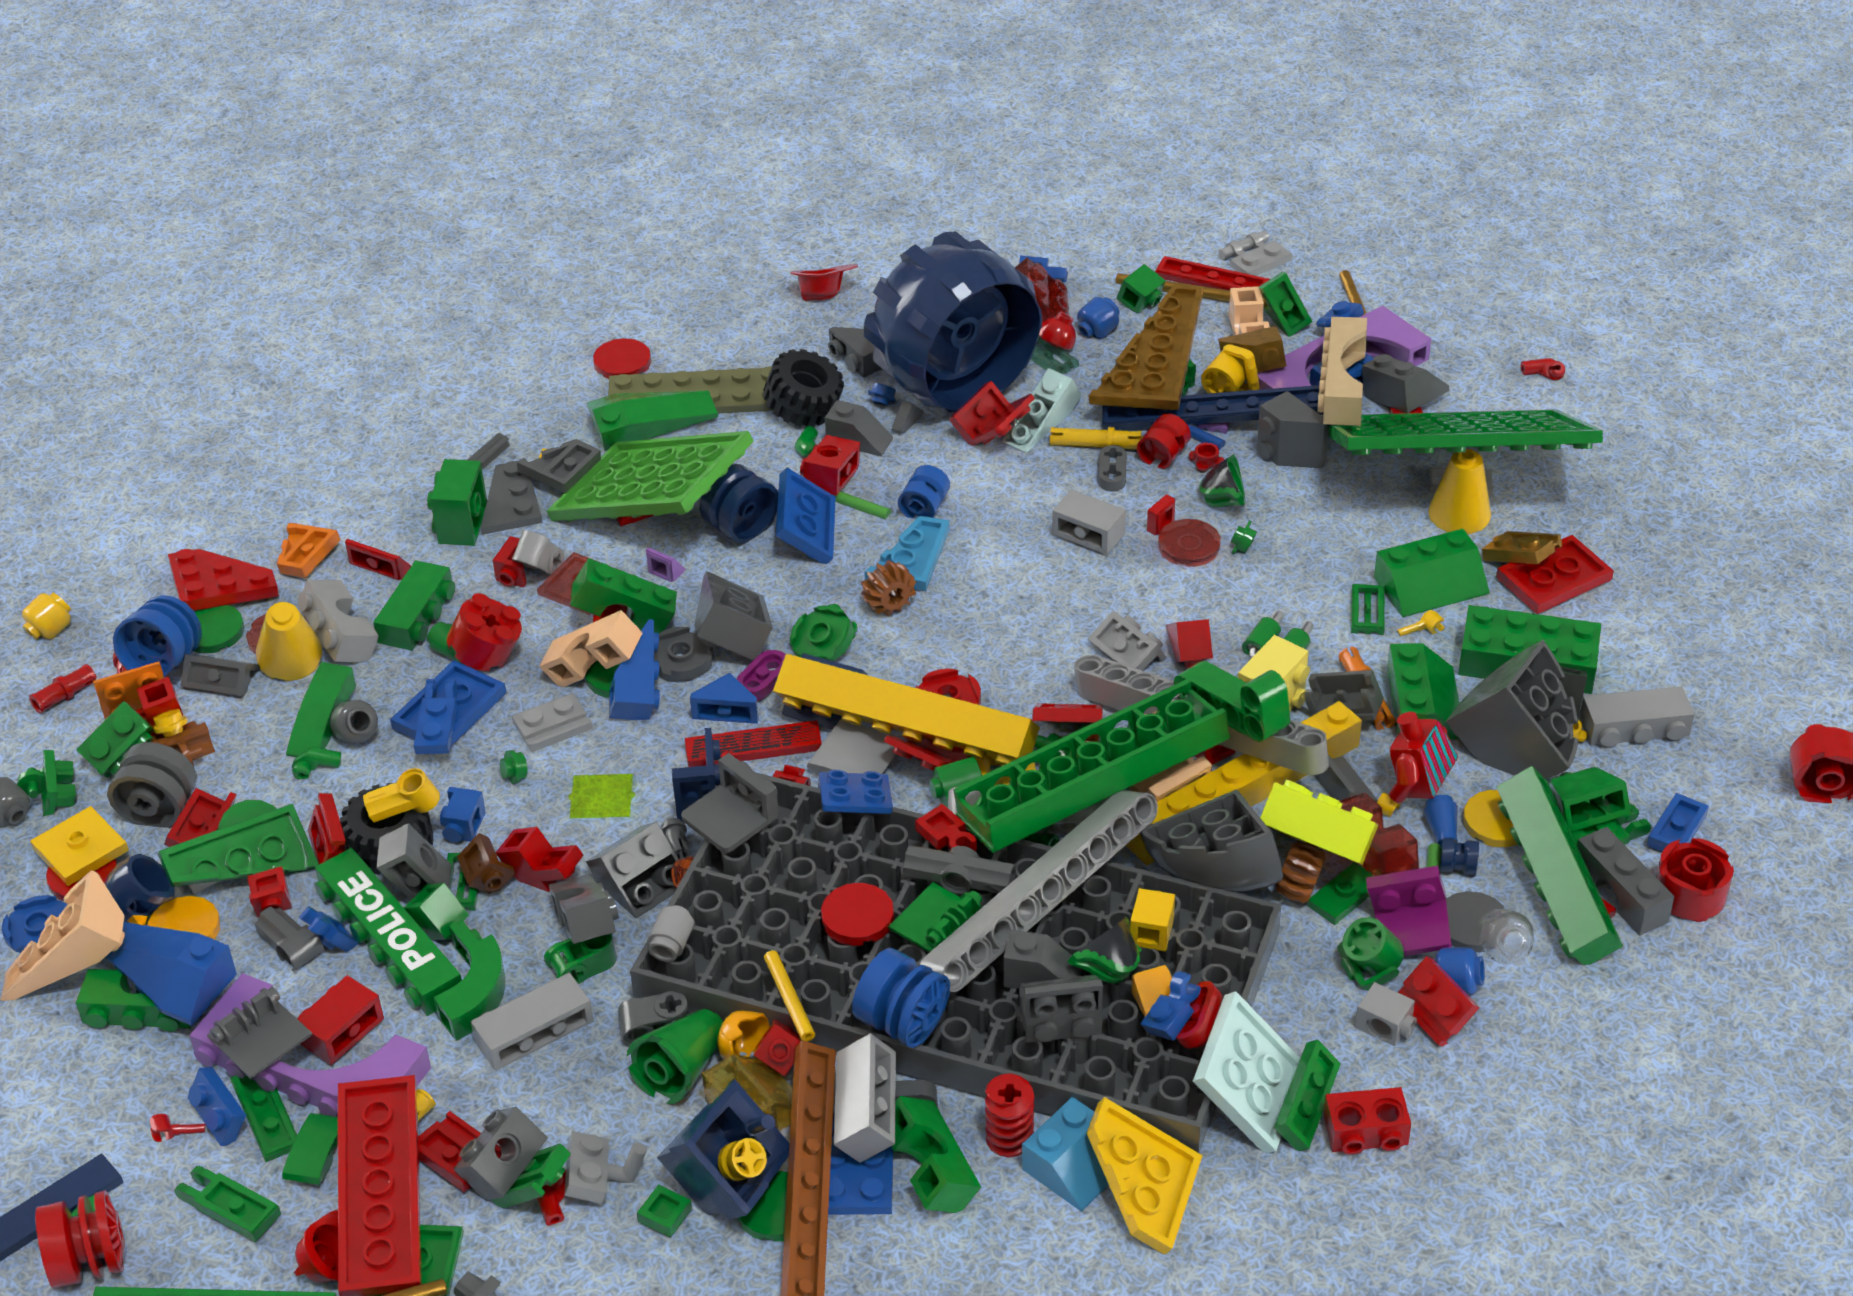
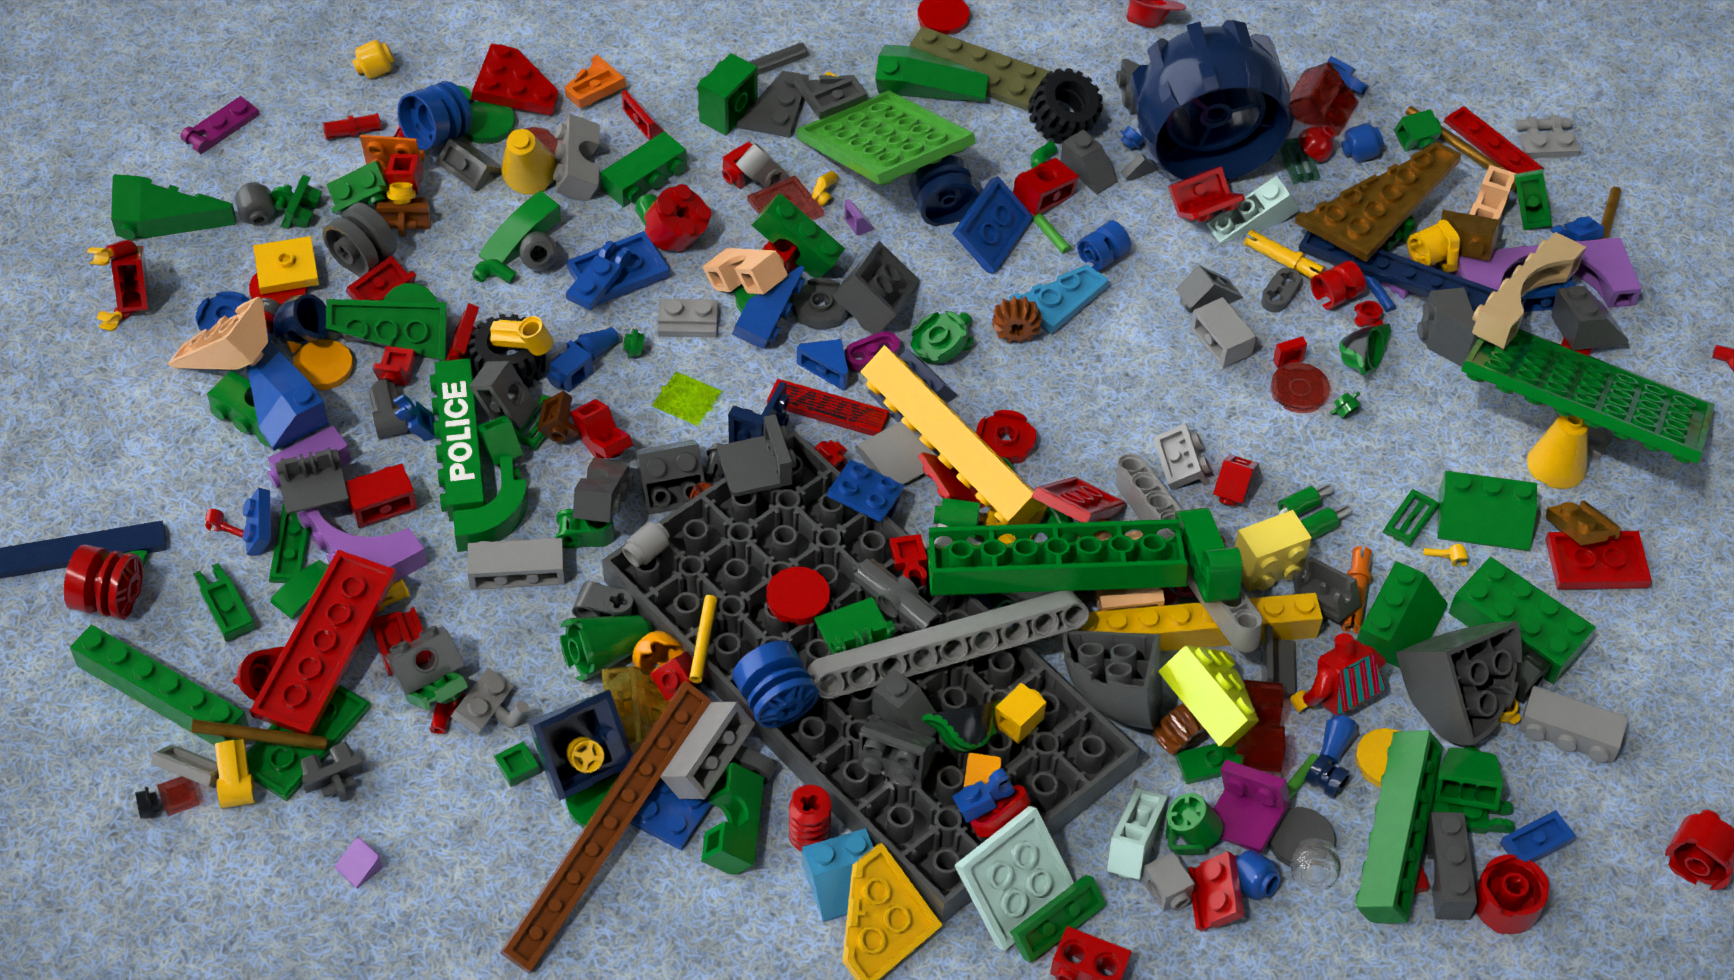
camera: 25 degrees right, 10 degrees up
(475, 778) = (597, 341): none -> blue cone
(608, 553) = (822, 184): none -> yellow arm
(1043, 494) = (1204, 287): none -> dark grey slope
(1326, 987) = (1136, 834): none -> light aqua slope

